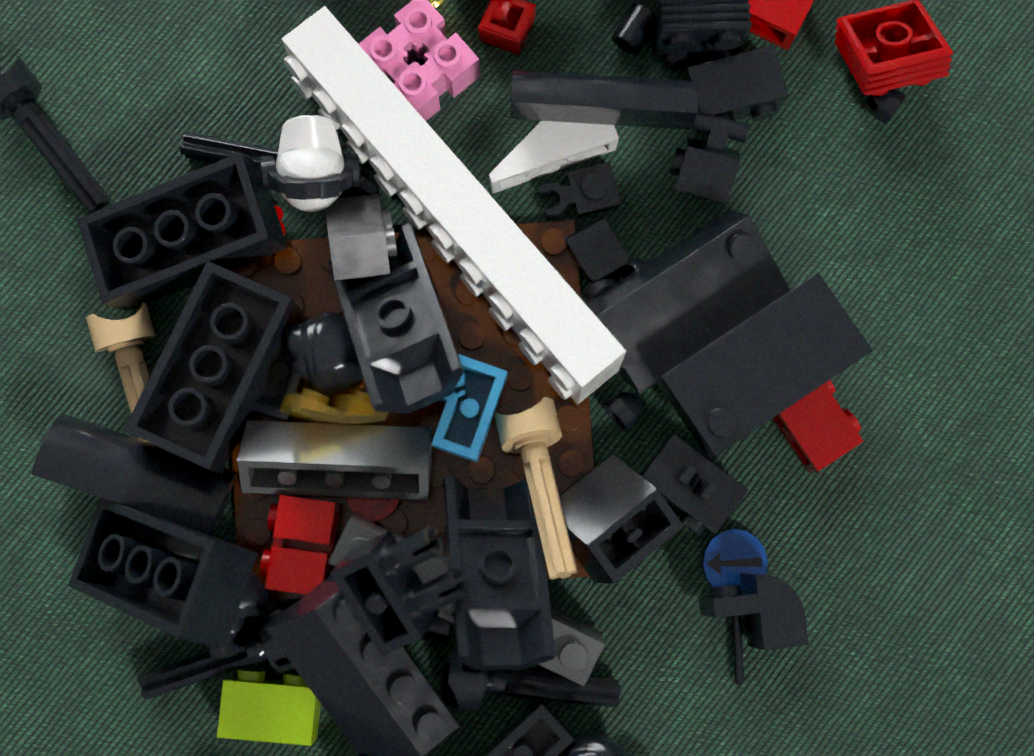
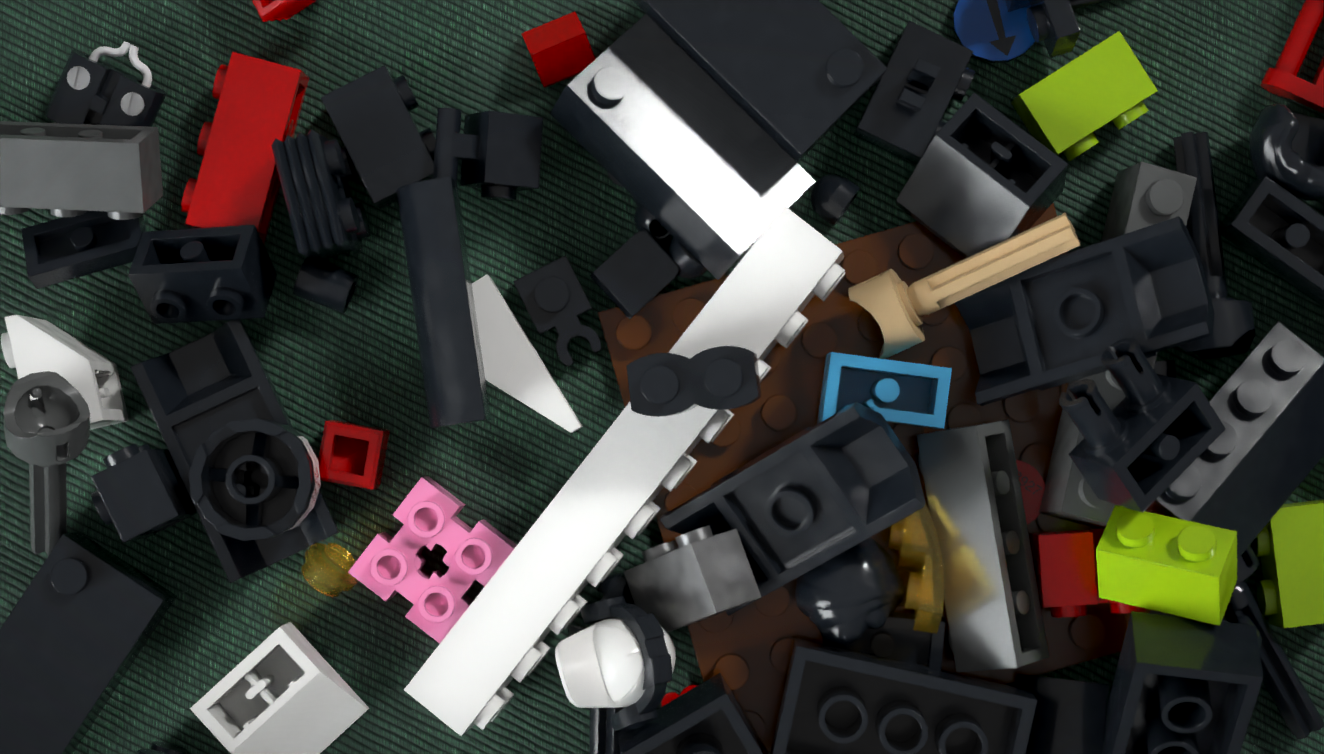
camera: 105 degrees left, 5 degrees up
(286, 589) = (1167, 564): none -> lime brick
(505, 250) = (712, 379): none -> black brick
(663, 616) = (1085, 96): none -> lime brick
(777, 229) = (559, 49): none -> red slope

